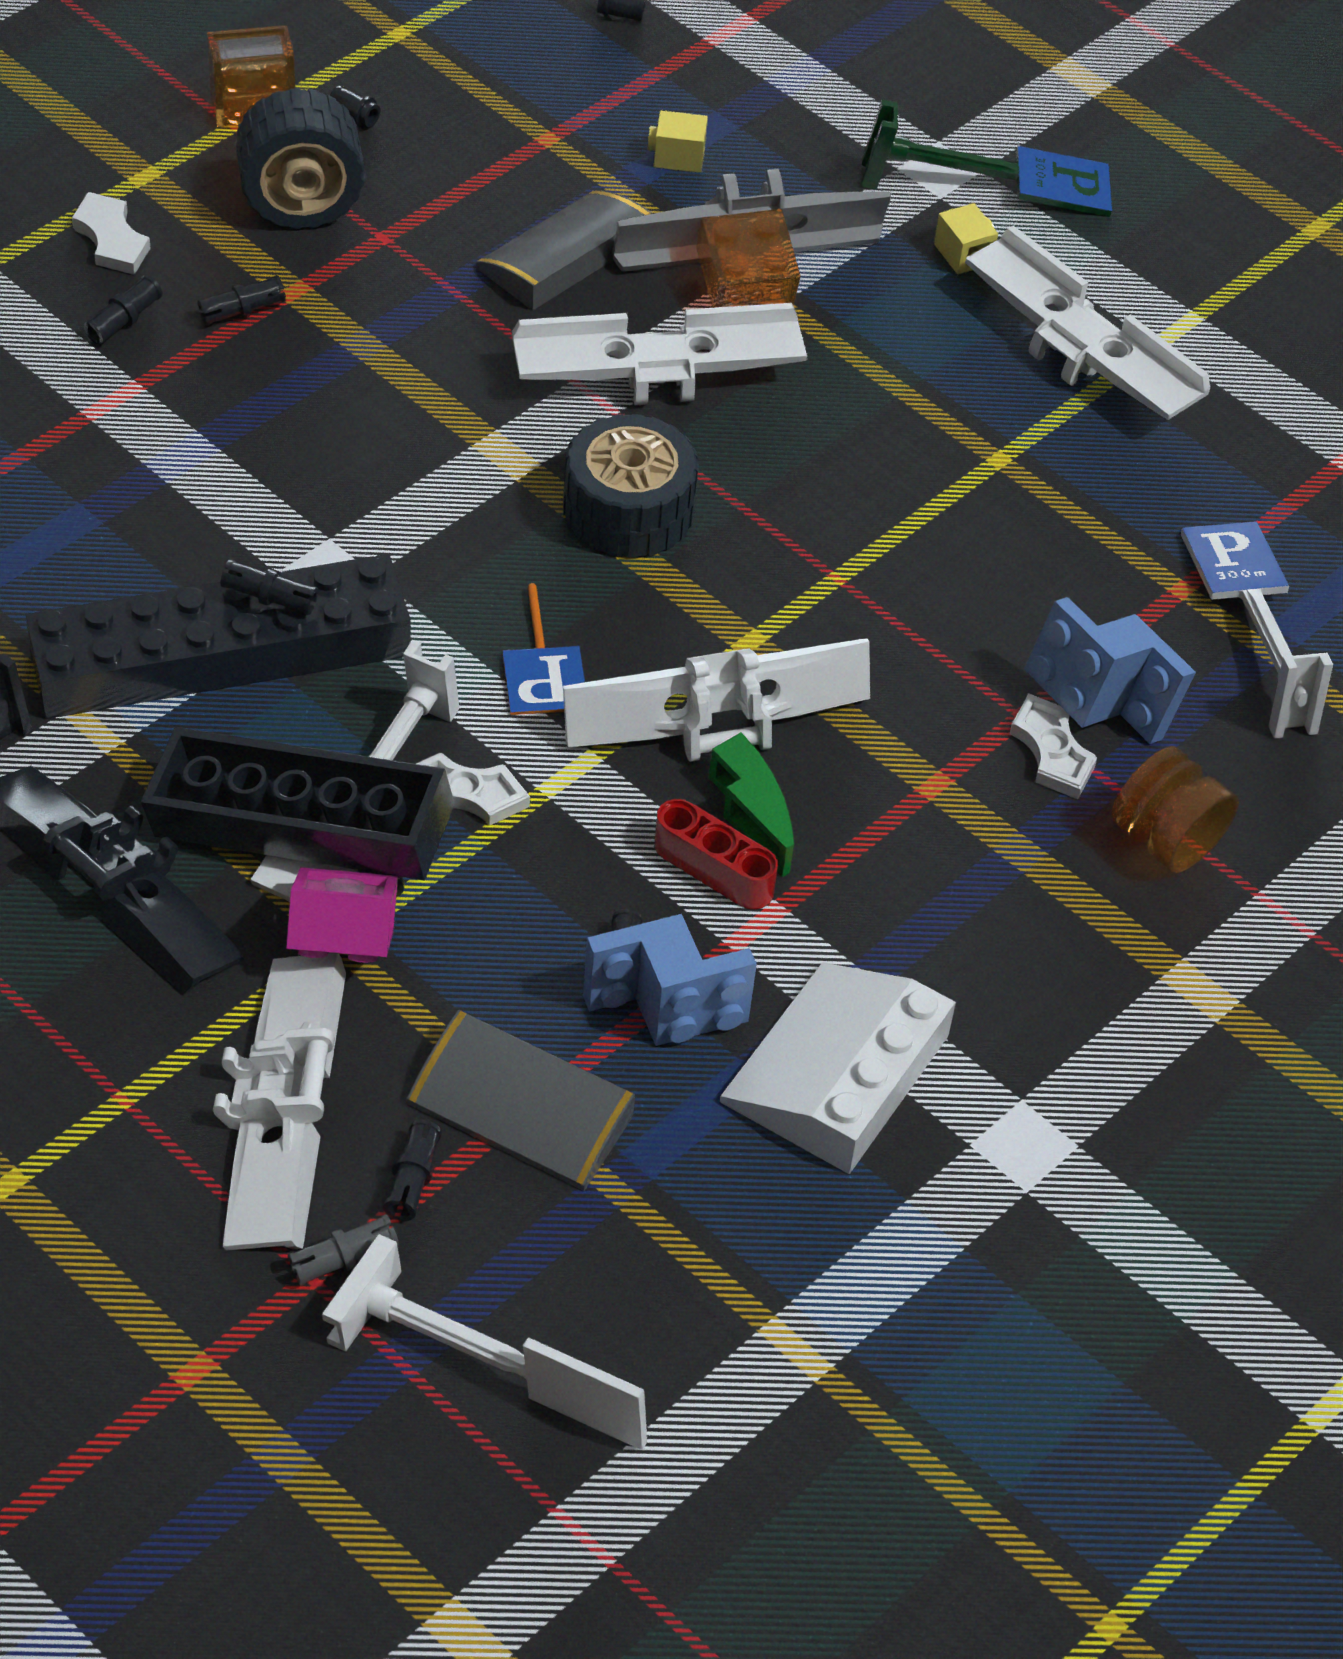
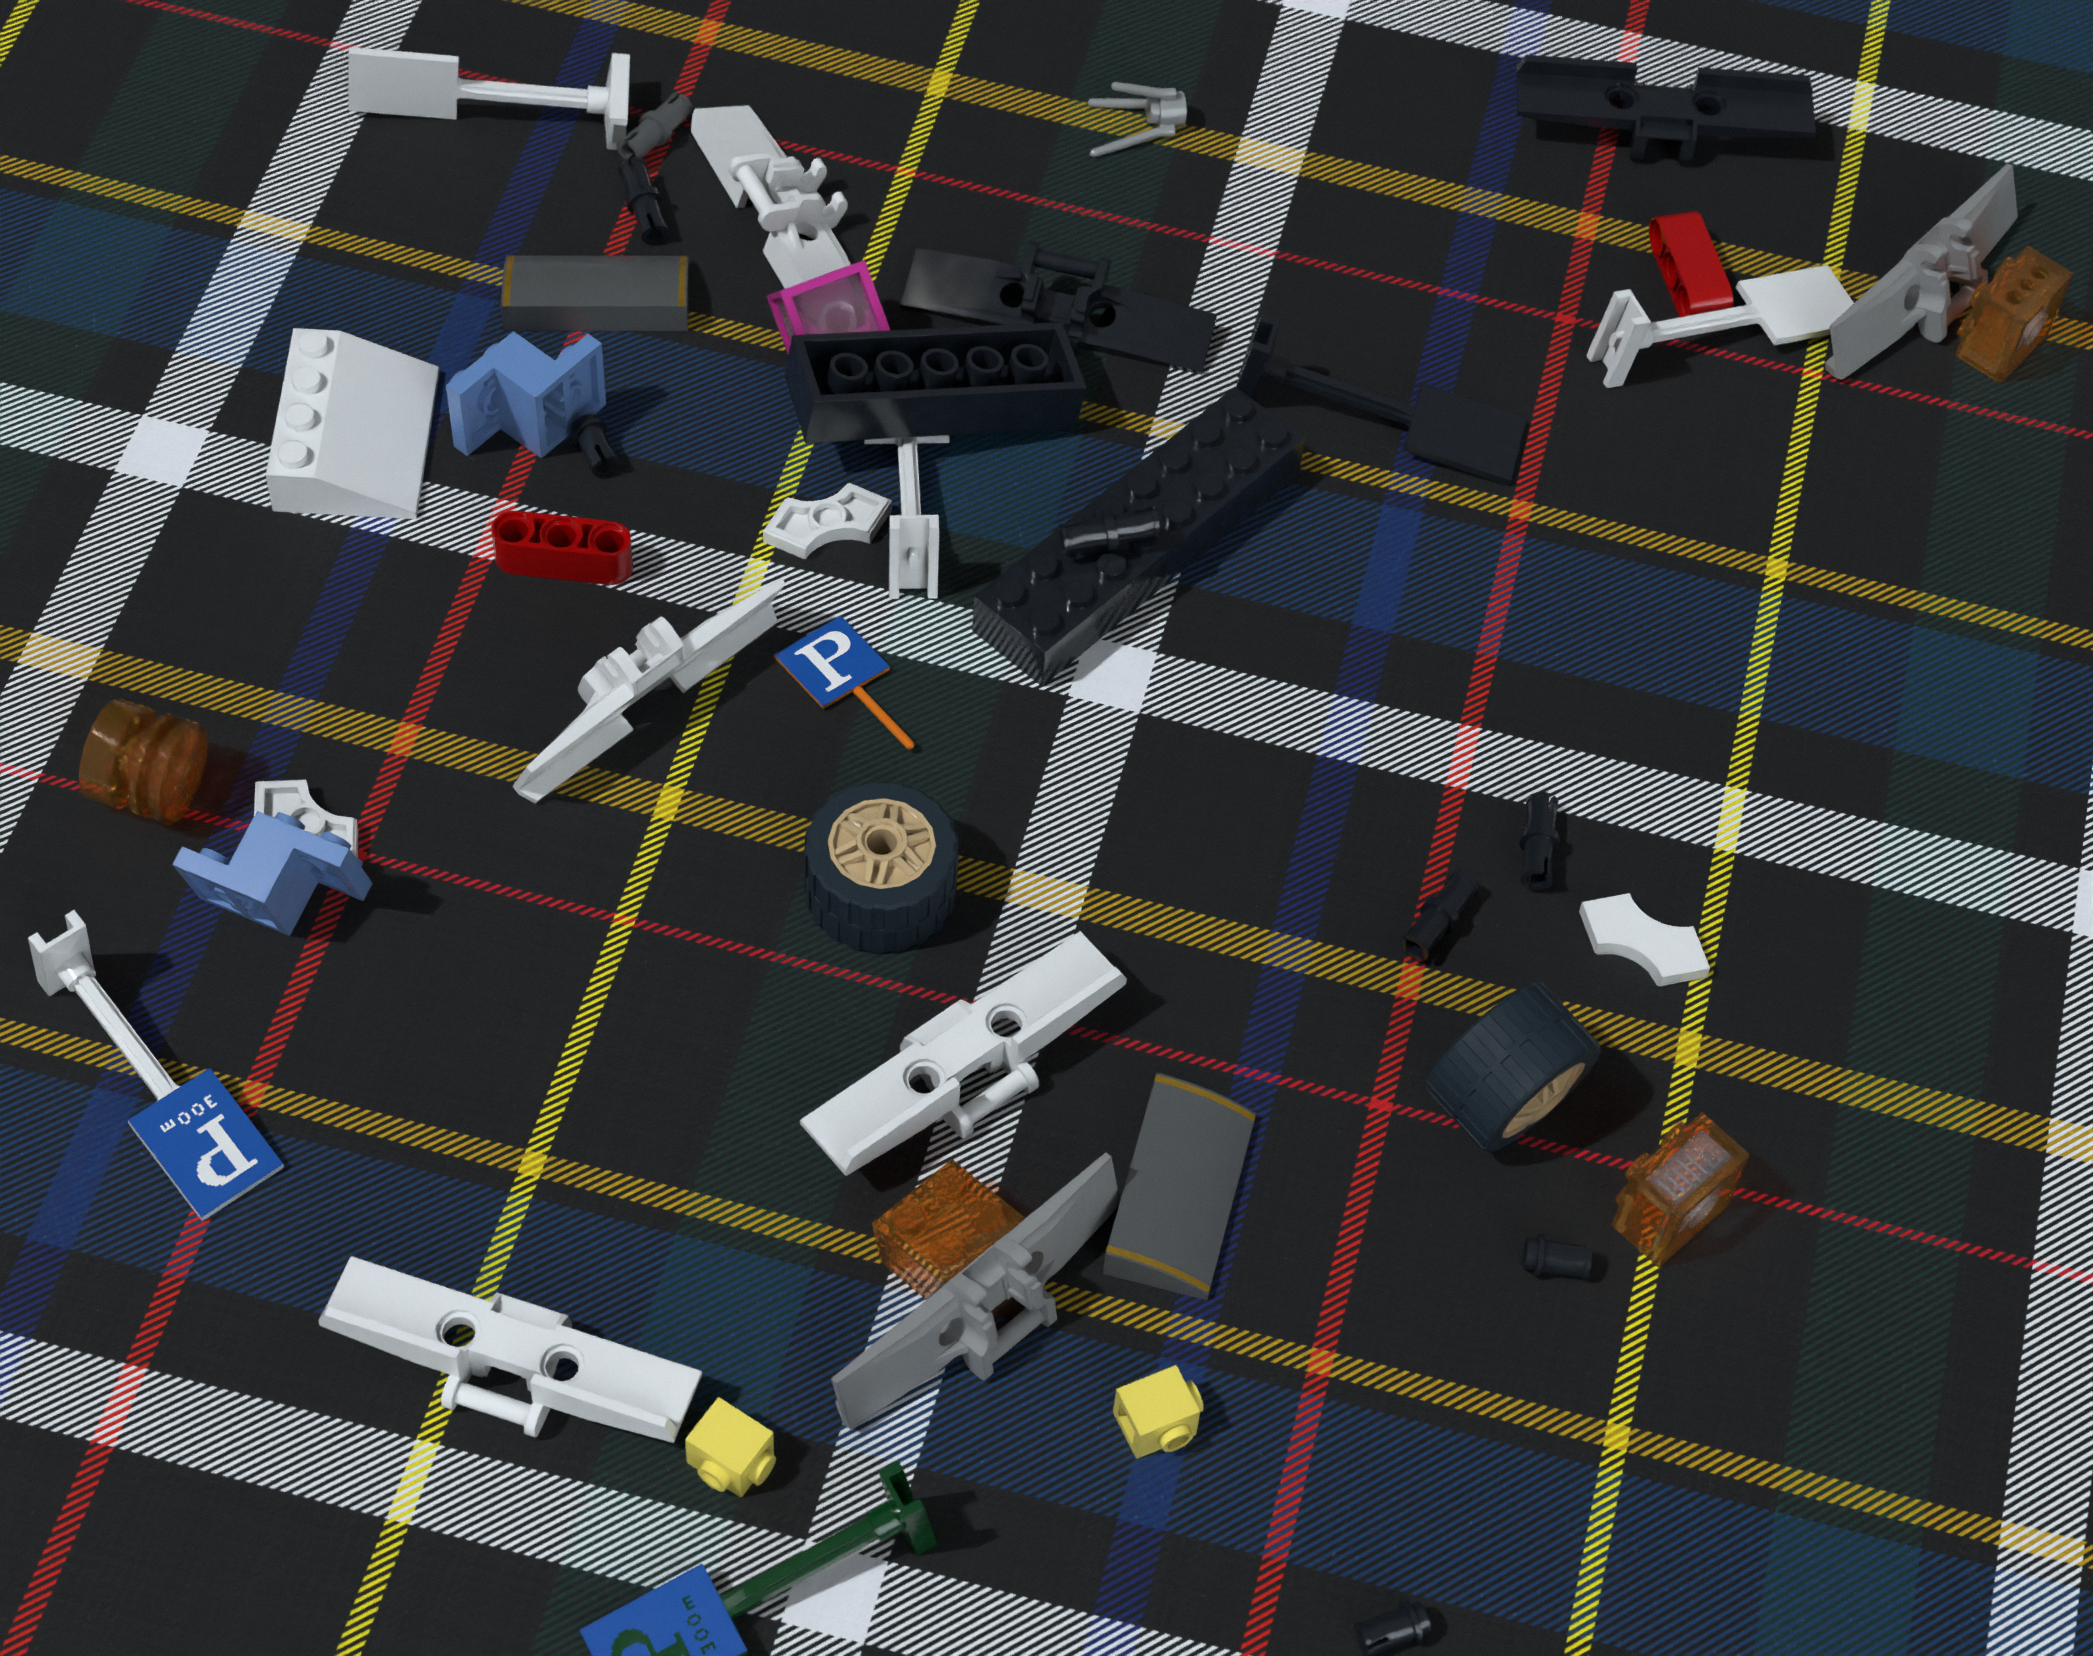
camera: 150 degrees right, 5 degrees up
(753, 798) = (555, 611): green slope -> none

